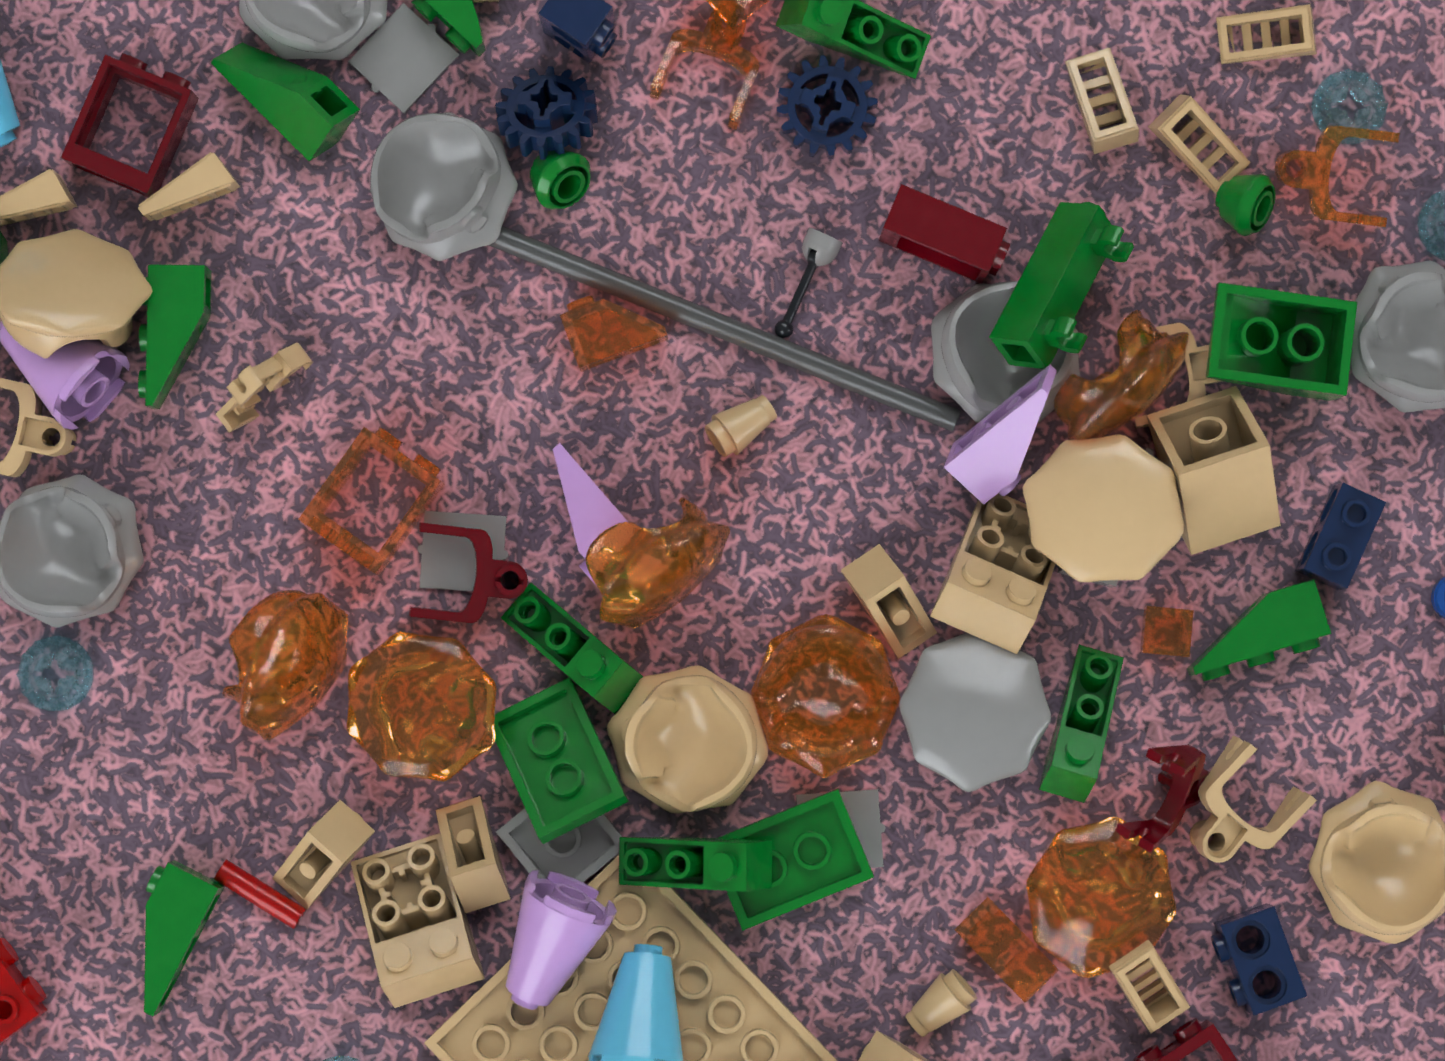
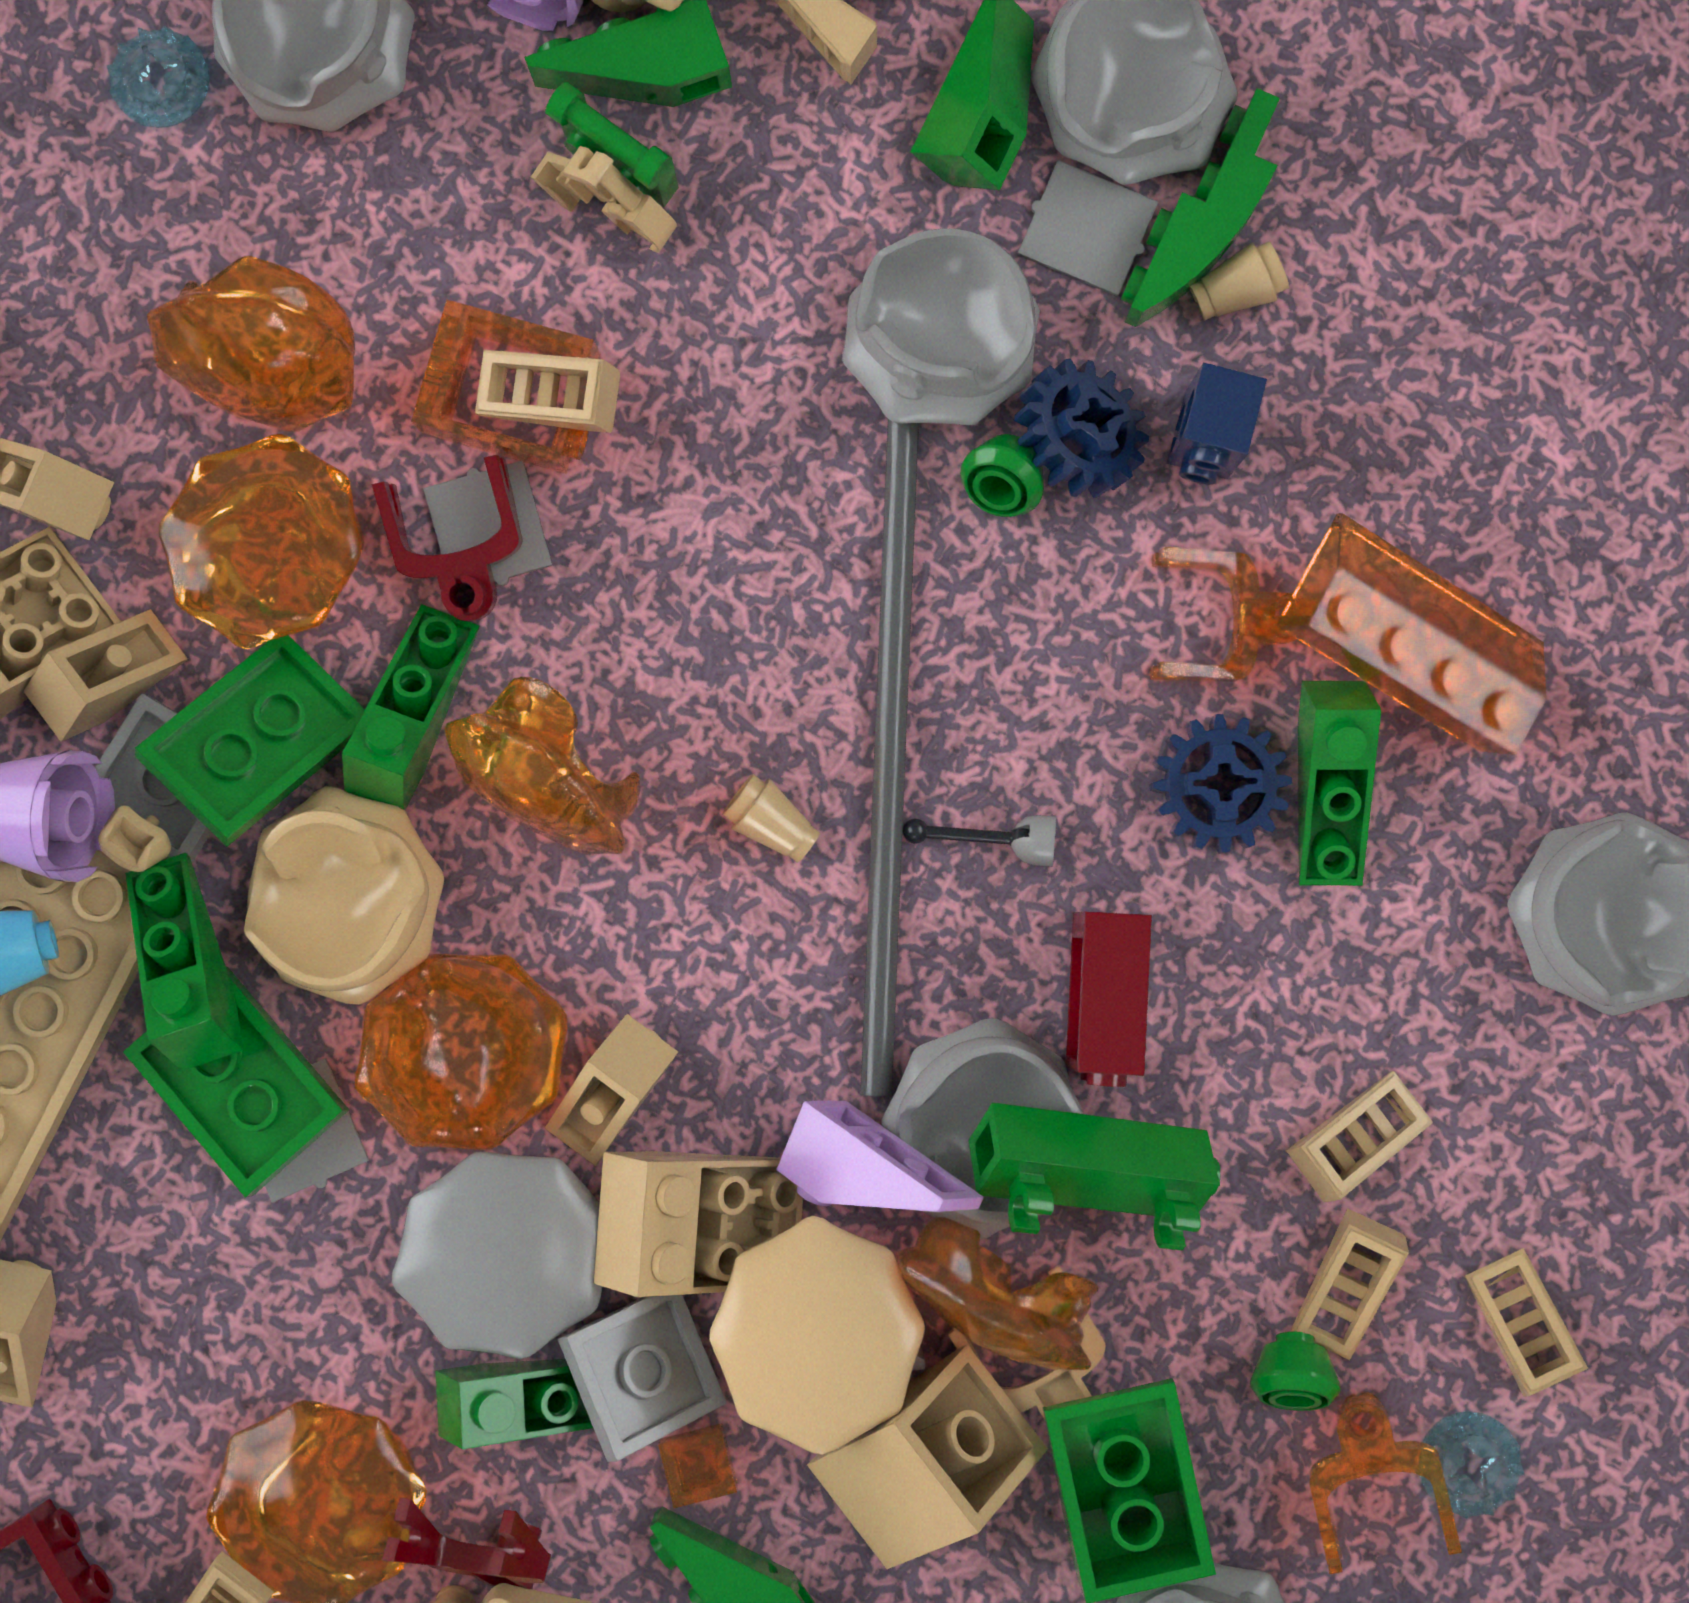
camera: 75 degrees right, 0 degrees up
(215, 377) = (583, 126): none -> green plate
(407, 433) = (599, 400): none -> tan slope
(587, 505) = (597, 661): lavender slope -> none
(599, 867) = (133, 840): none -> tan piece
(607, 331) = (827, 604): clear orange slope -> none
(941, 1003) = (119, 1341): tan cone -> none
(1006, 949) = (215, 1400): clear orange slope -> none
(1089, 645) = (641, 1373): none -> light grey plate

